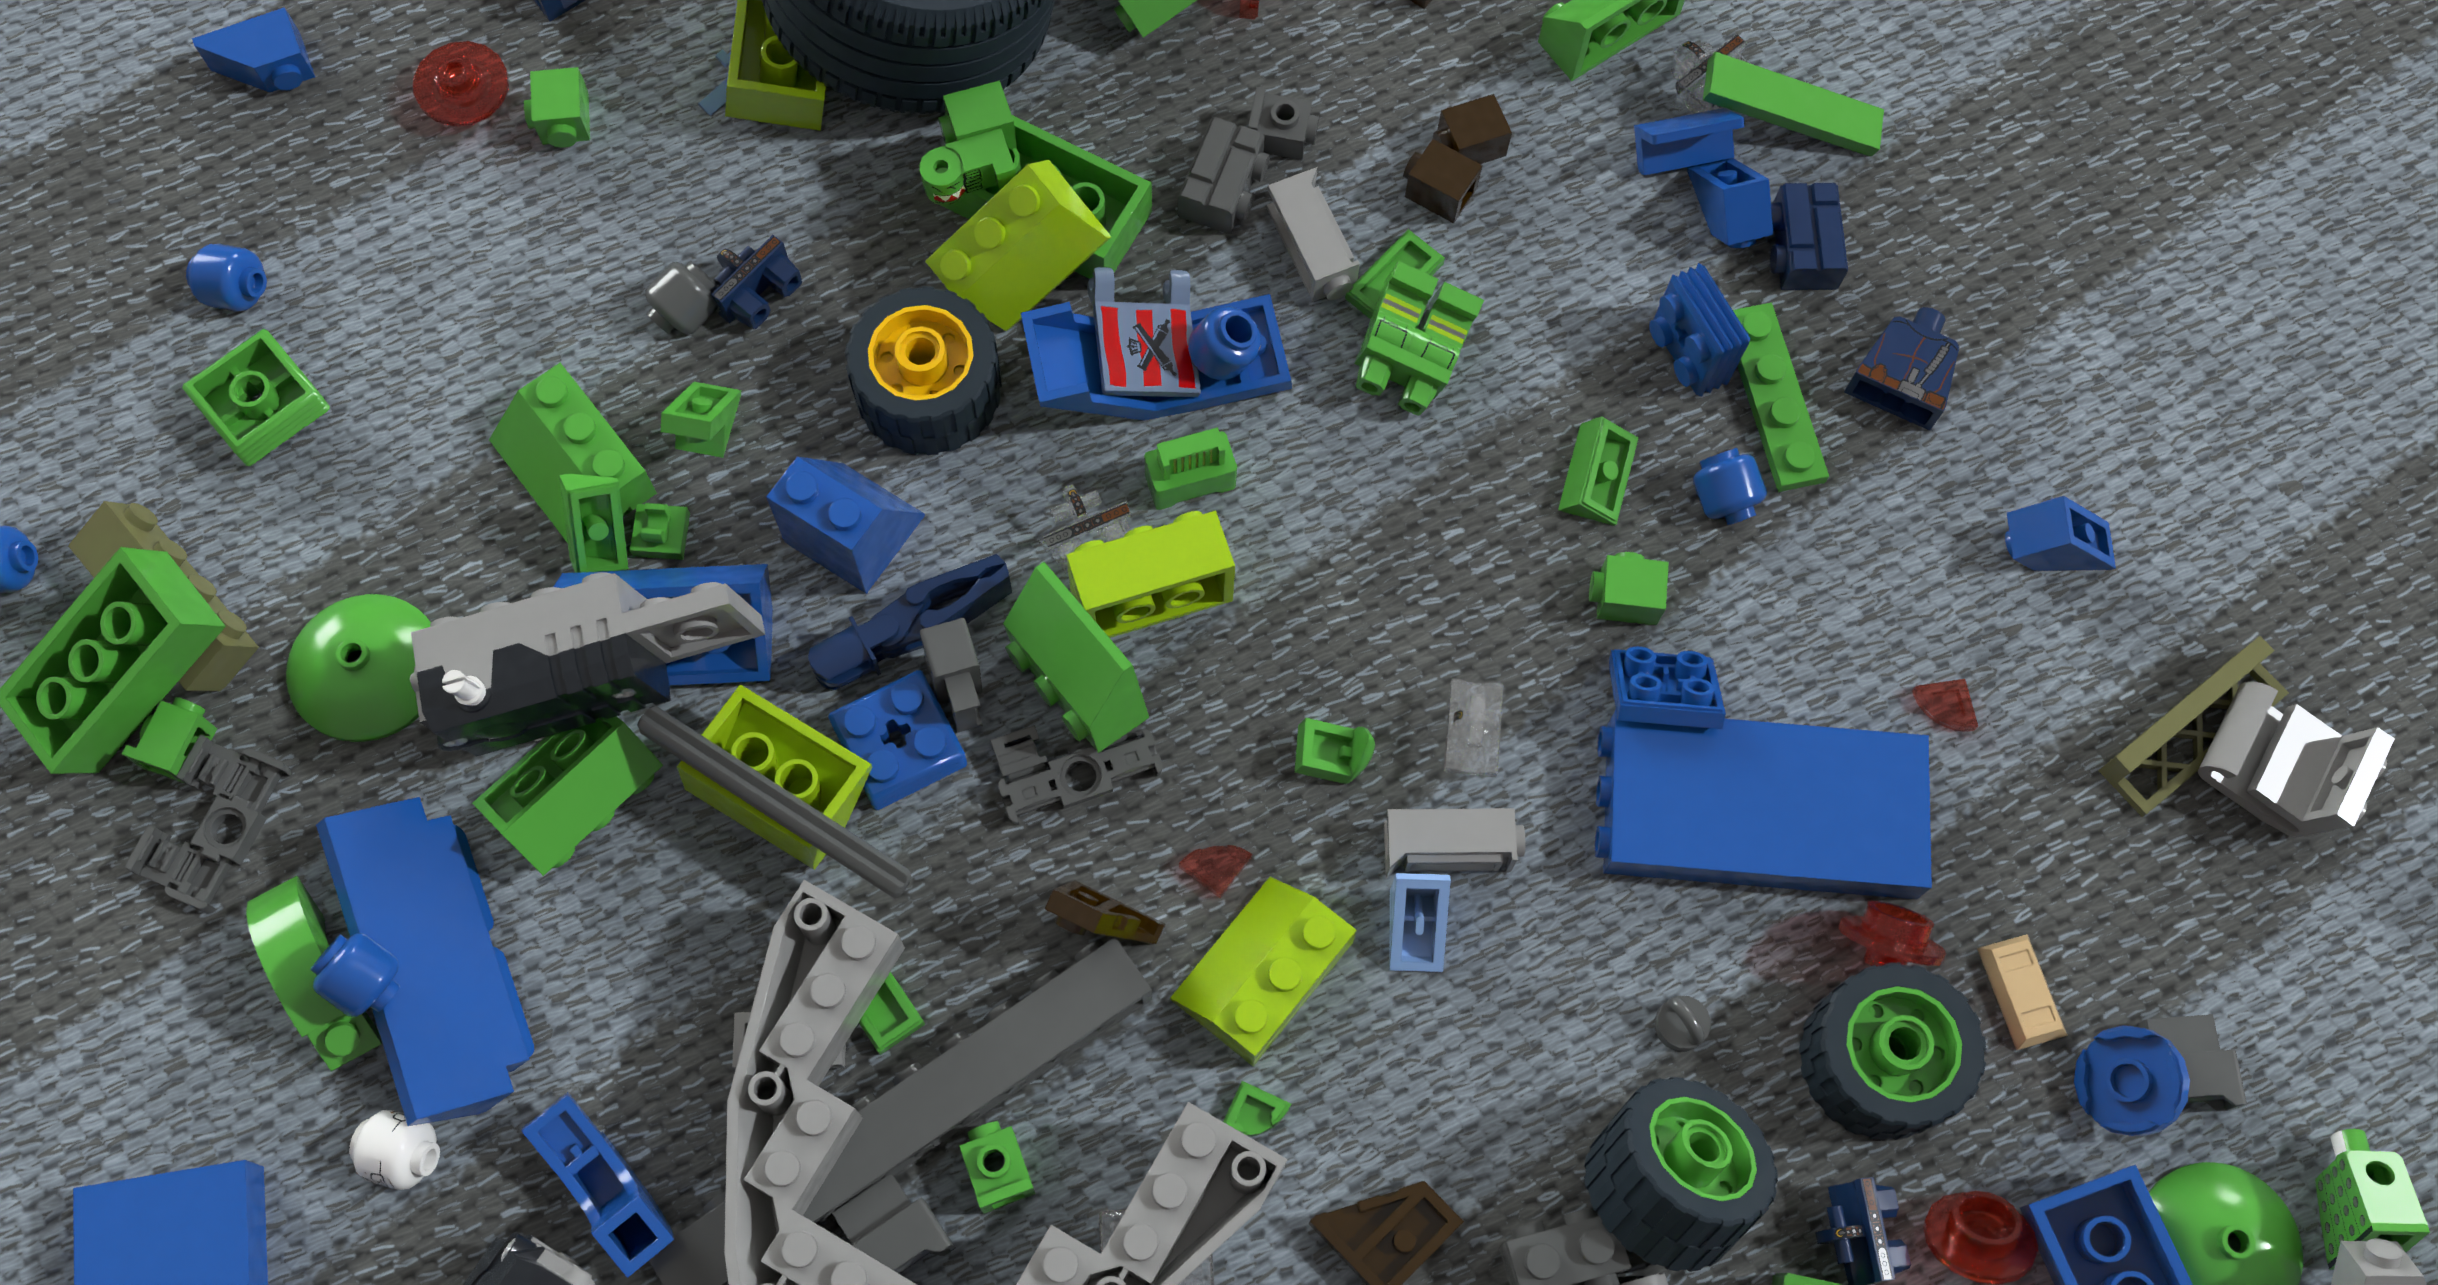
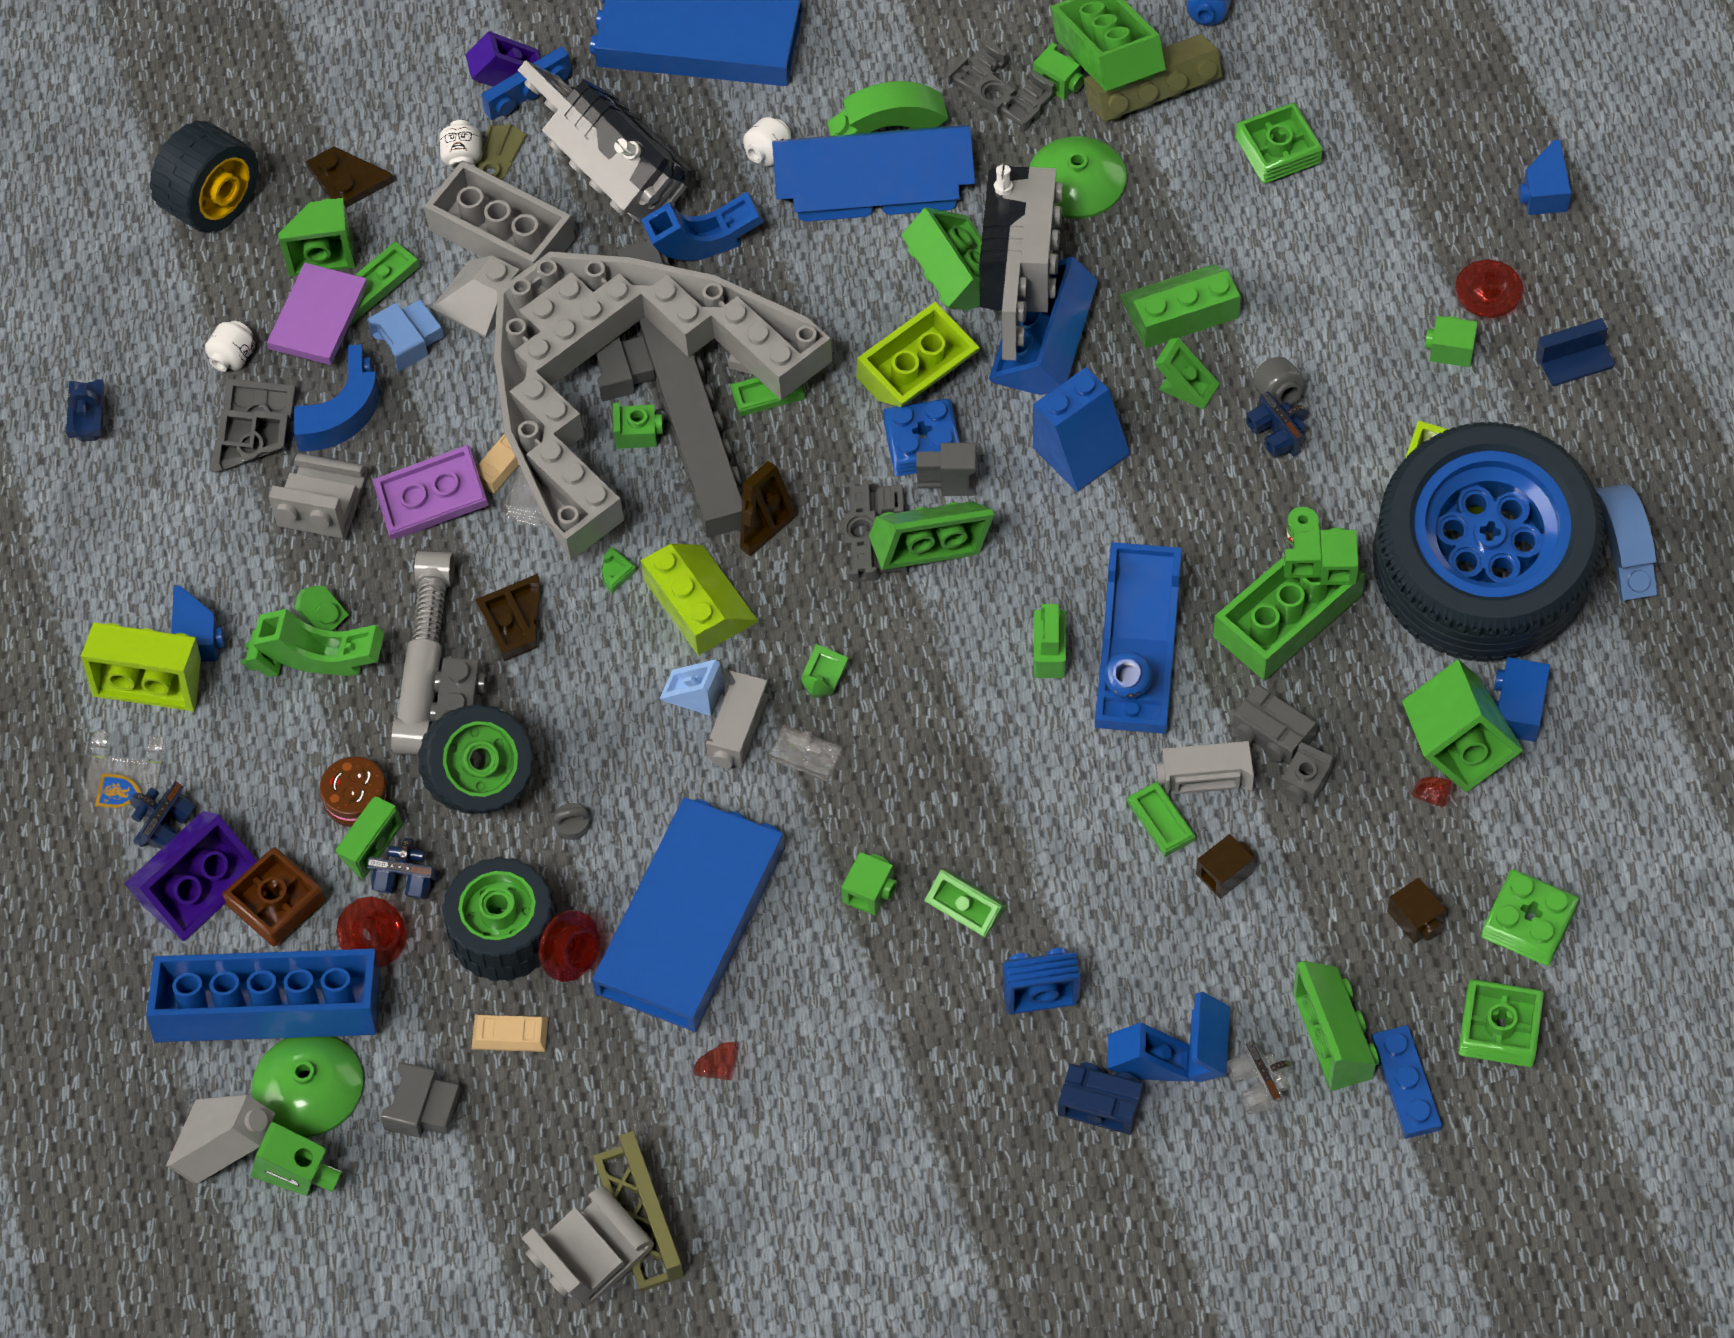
camera: 115 degrees right, 10 degrees down
(226, 277) = (1374, 140): blue head -> none
(356, 974) = (861, 120): blue head -> none
(593, 523) = (1120, 295): bright green slope -> none
(659, 531) = (1114, 342): bright green tile -> none
(775, 801) = (891, 342): dark grey axle -> none
(898, 626) = (997, 454): dark blue arm -> none
(924, 370) = (1172, 498): black wheel -> none
(1019, 245) = (1239, 564): lime slope -> none
(1108, 524) = (1032, 569): clear hips -> none
(1144, 343) = (1153, 632): flag -> none
(1153, 573) = (976, 590): lime brick -> none
(1216, 866) = (774, 591): clear red tile -> none
(1411, 355) = (1101, 804): bright green hips -> none
(1475, 129) = (1259, 898): dark brown brick -> none
(1666, 688) = (788, 874): blue tile -> none
(1729, 486) = (921, 972): blue head -> none
(1778, 402) = (984, 1035): bright green plate -> none
(1793, 104) = (1212, 1123): bright green tile -> none
(1909, 369) = (971, 1126): dark blue torso -> none
(2059, 537) = (804, 1178): blue slope -> none
(2132, 1081) = (425, 1057): blue tile -> none

